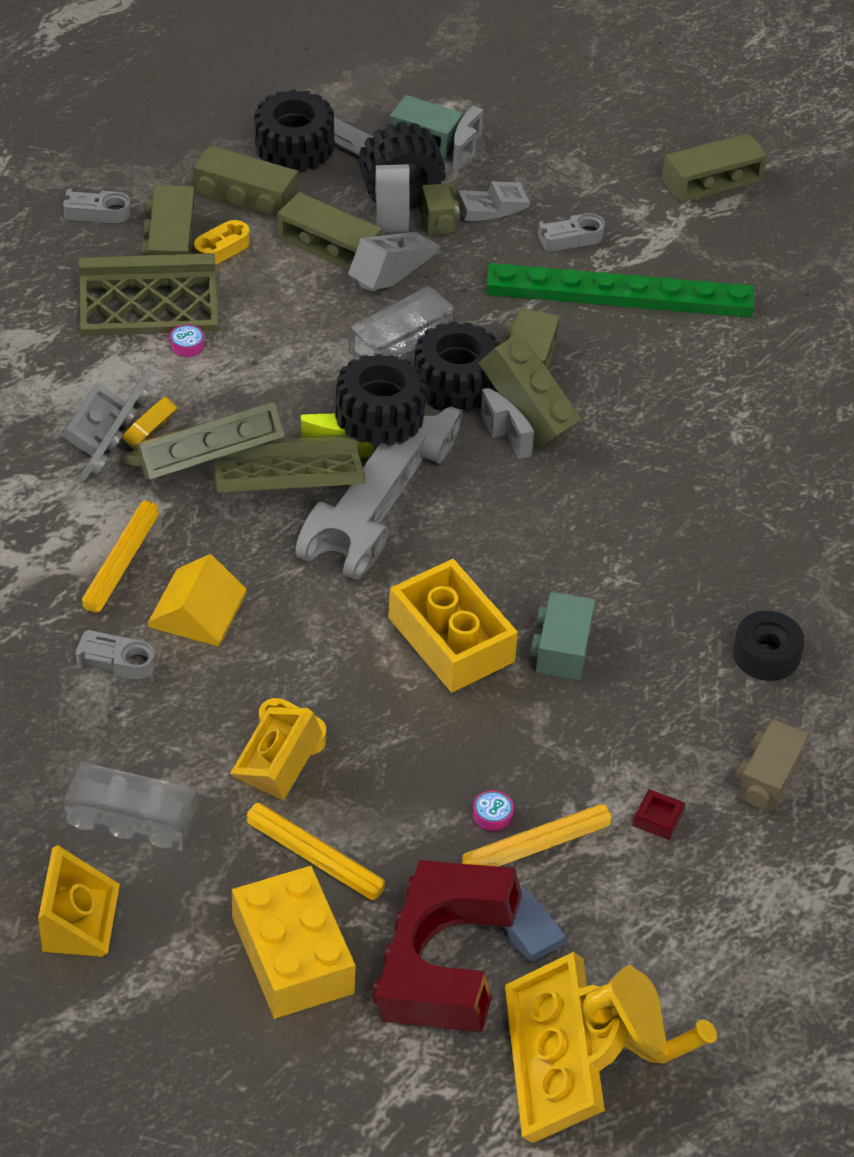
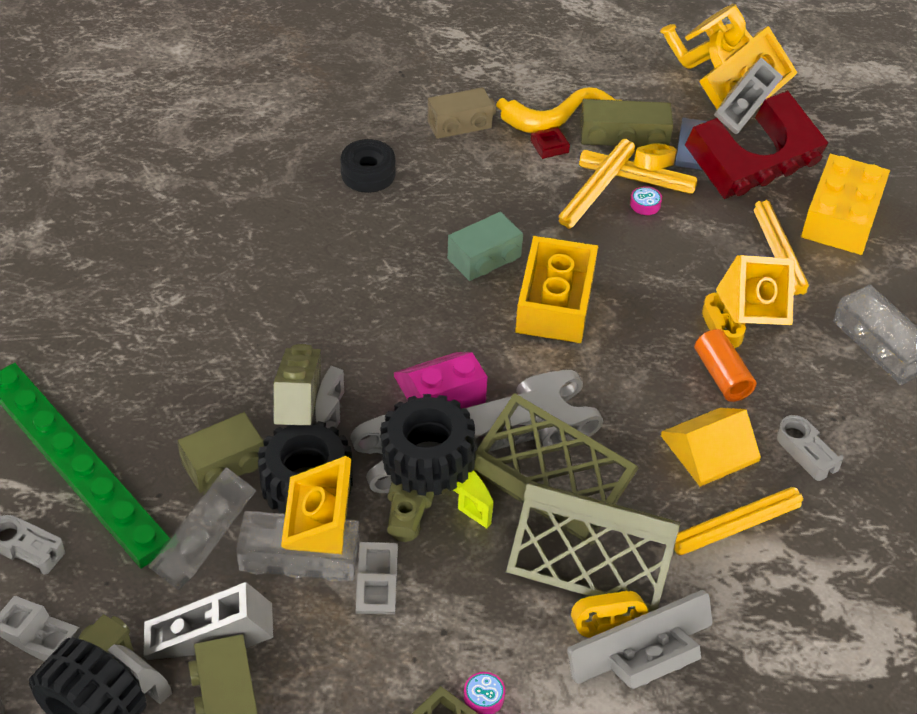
camera: 135 degrees left, 0 degrees up
(246, 669) = (725, 365): none -> orange pin
(325, 349) = (377, 578): none -> light grey slope
(393, 317) = (318, 508): none -> yellow slope
(451, 496) = (453, 375): none -> dark pink slope
(469, 286) = (202, 529): none -> clear brick
(507, 961) = (747, 95): none -> light grey slope
(542, 851) = (655, 156): none -> yellow beam
(550, 778) = (596, 183): none -> yellow axle
(609, 882) = (637, 121): none -> olive brick
(692, 822) = (533, 120): none -> yellow animal

